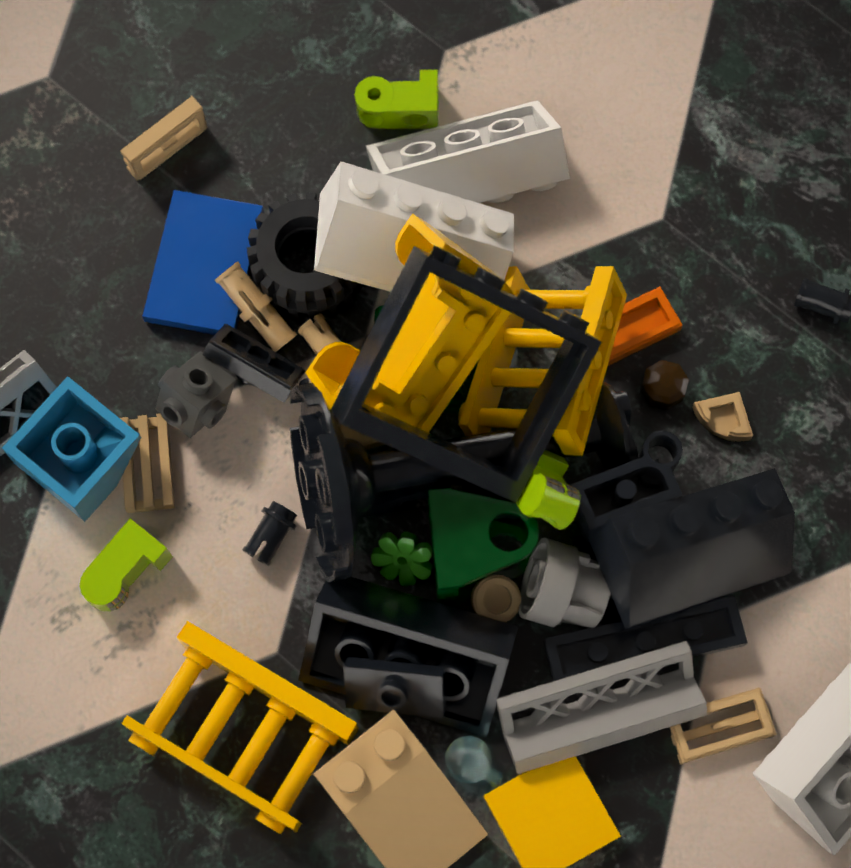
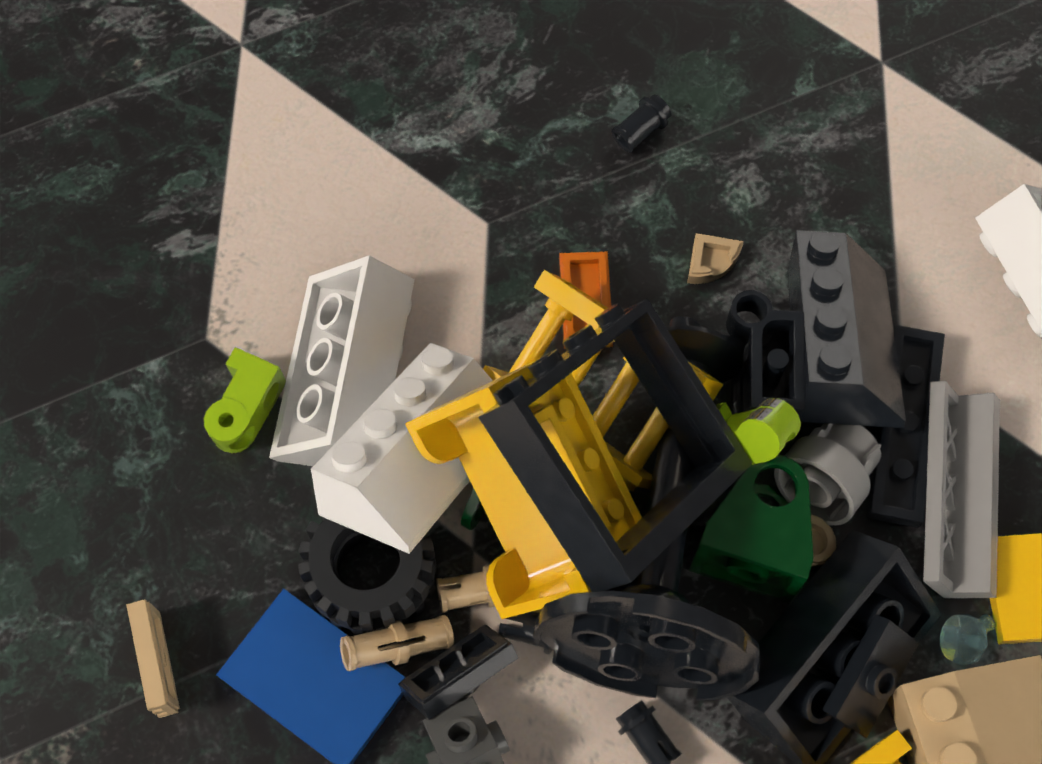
camera: 65 degrees left, 5 degrees down
(403, 558) = (736, 602): bright green plant -> none
(664, 384) = (661, 290): dark brown tile -> none
(761, 713) = (1026, 435): tan tile -> none

